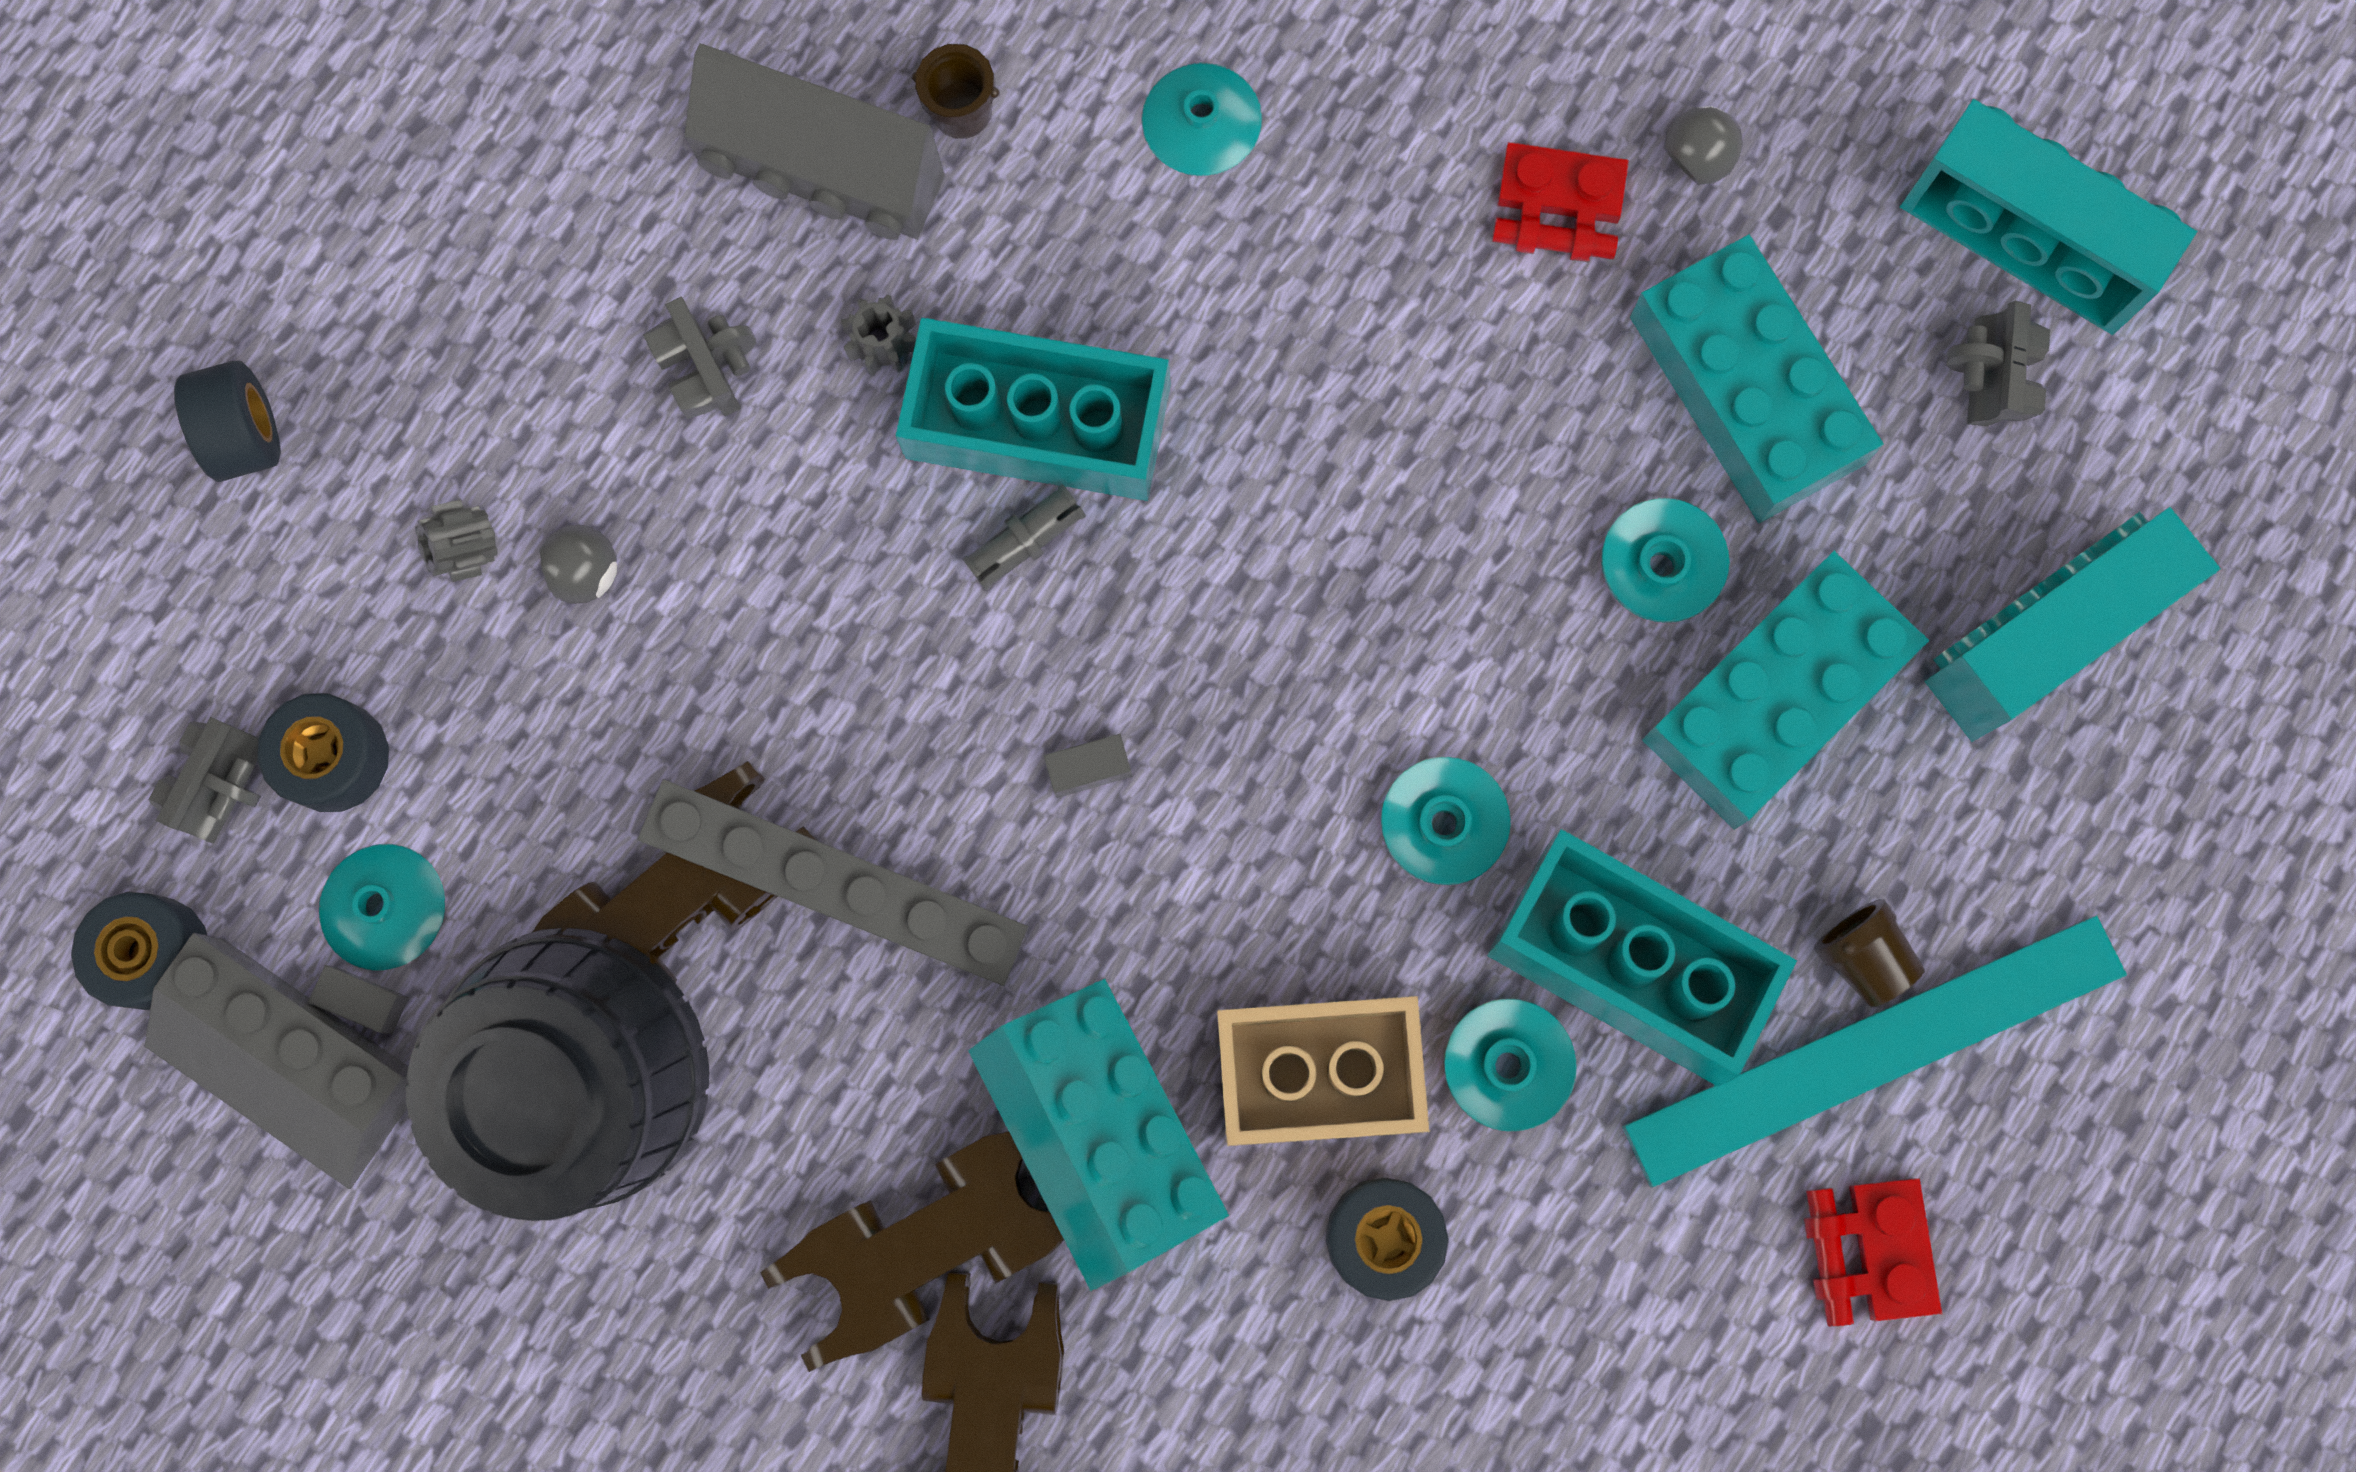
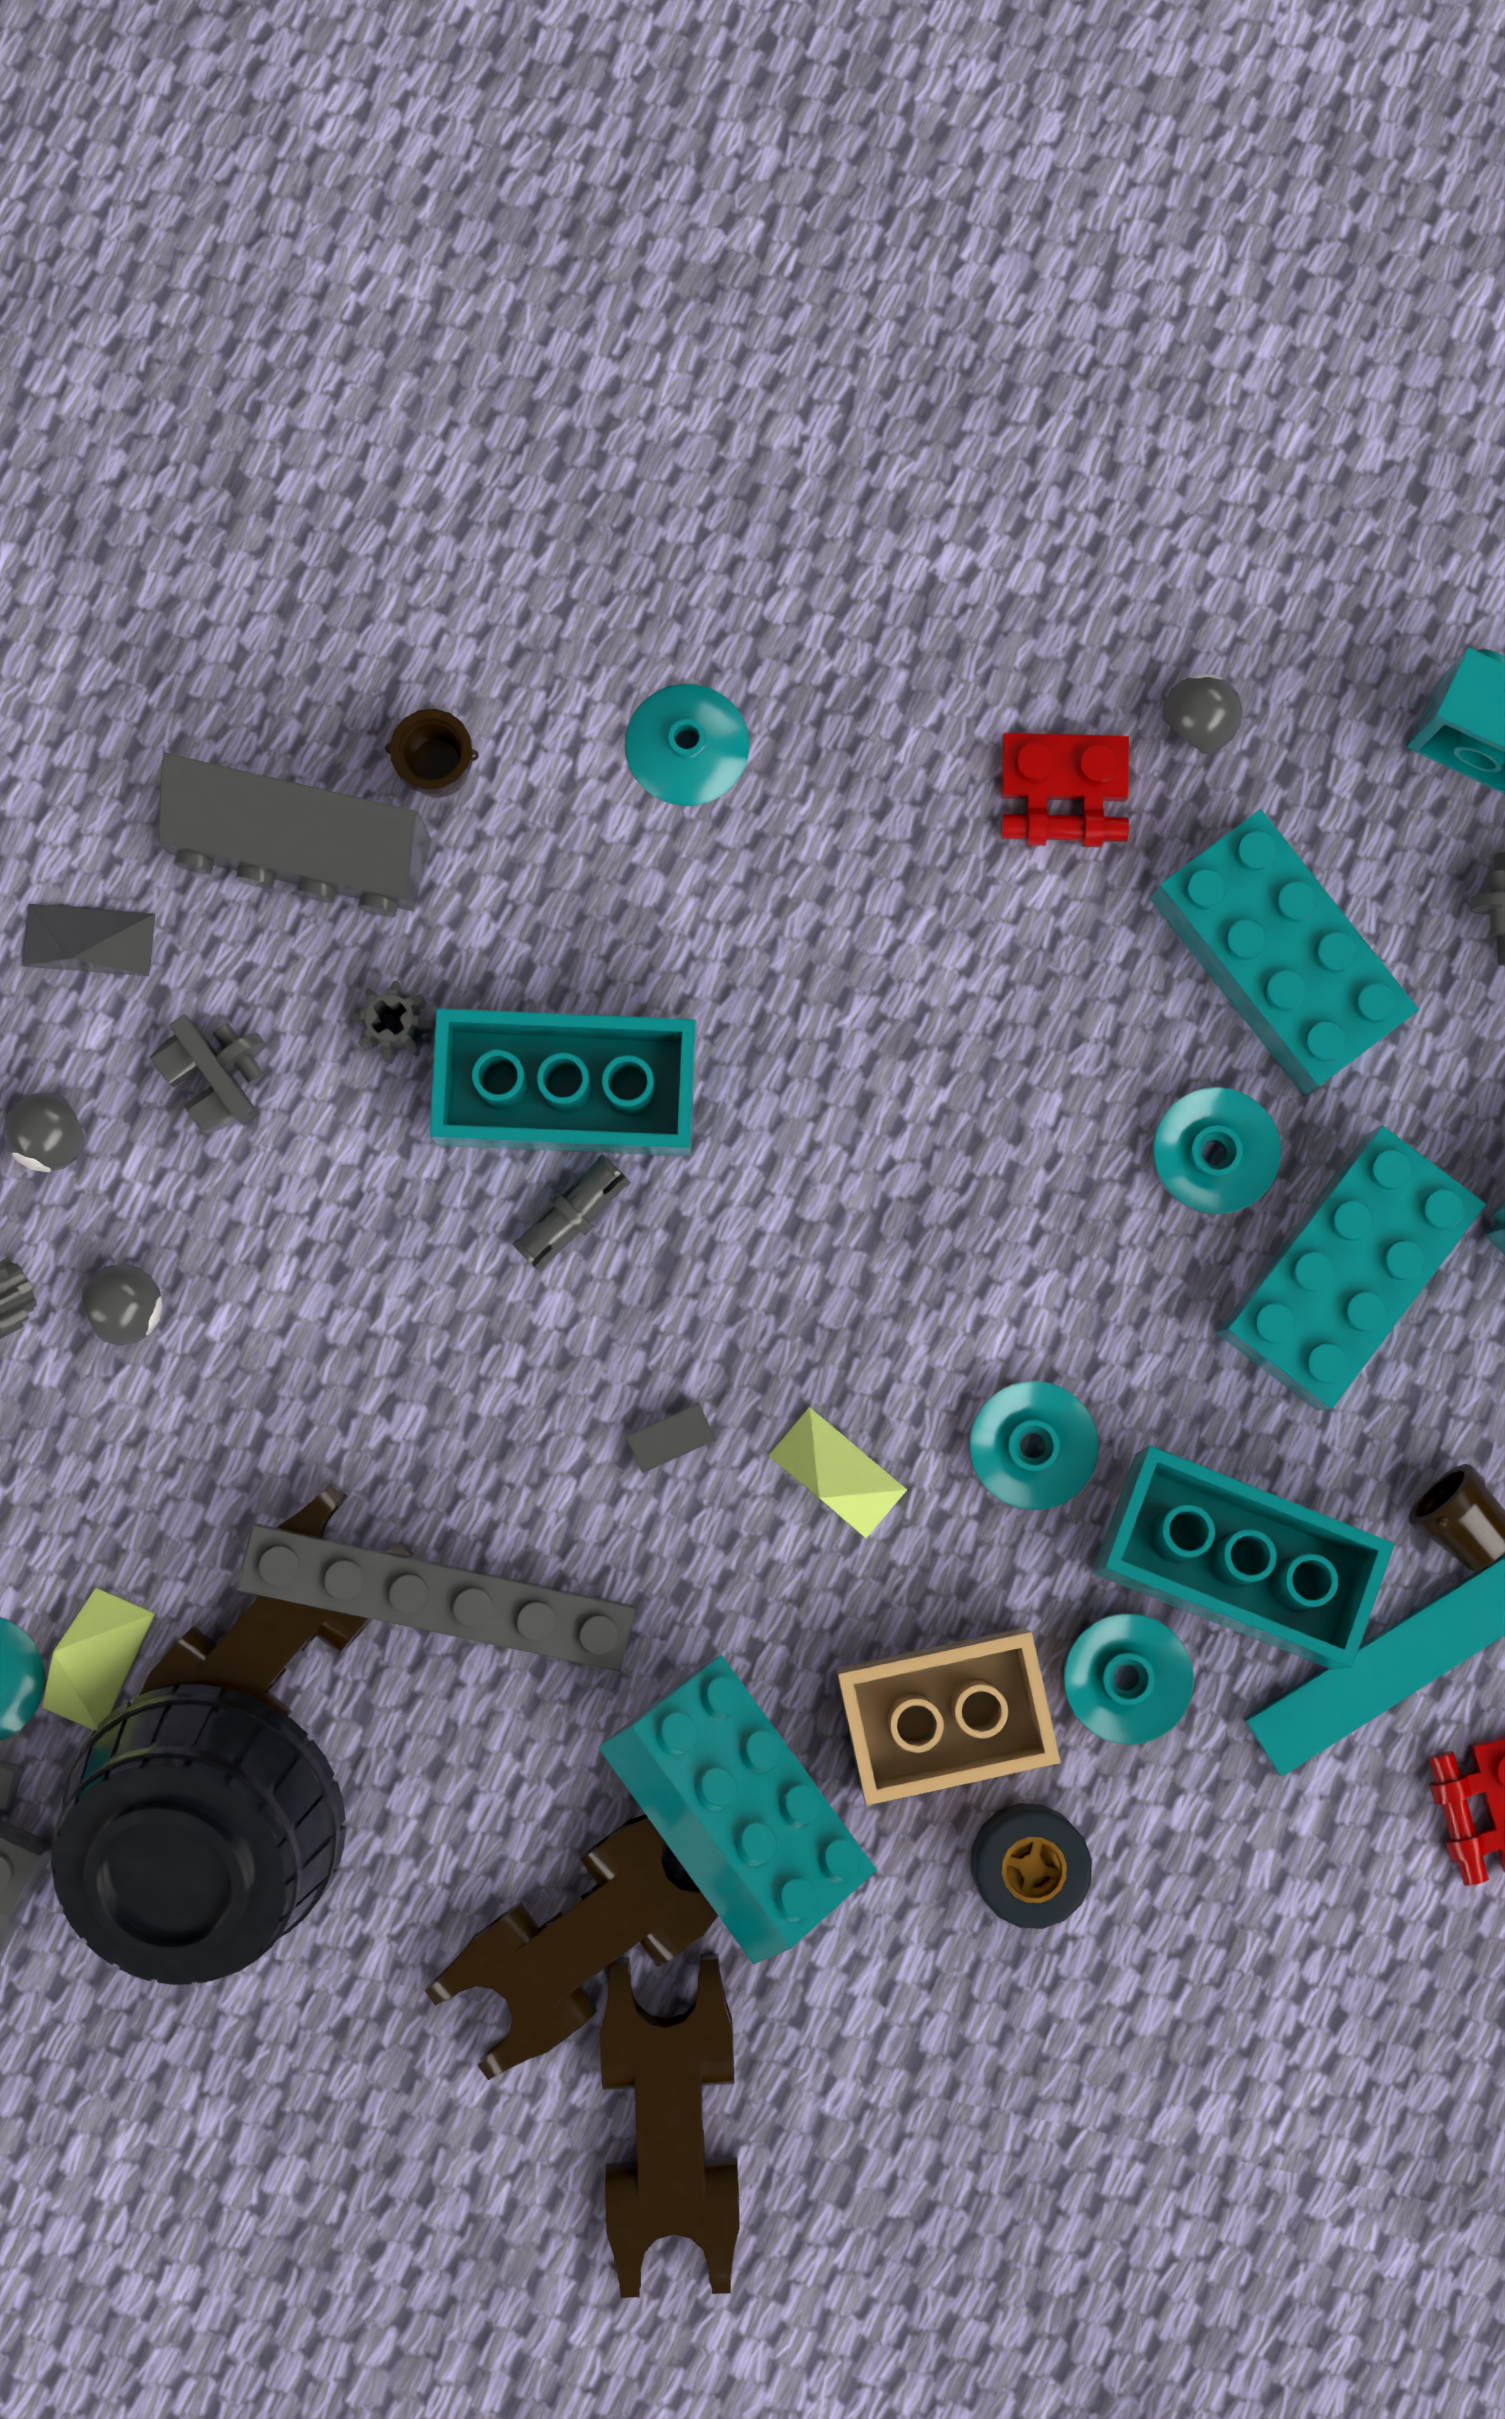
camera: 20 degrees left, 5 degrees up
(494, 898) = (95, 1658): none -> yellowish green slope
(531, 392) = (43, 1132): none -> dark grey piece
(607, 226) = (88, 940): none -> dark grey slope
(1247, 824) = (837, 1472): none -> yellowish green slope

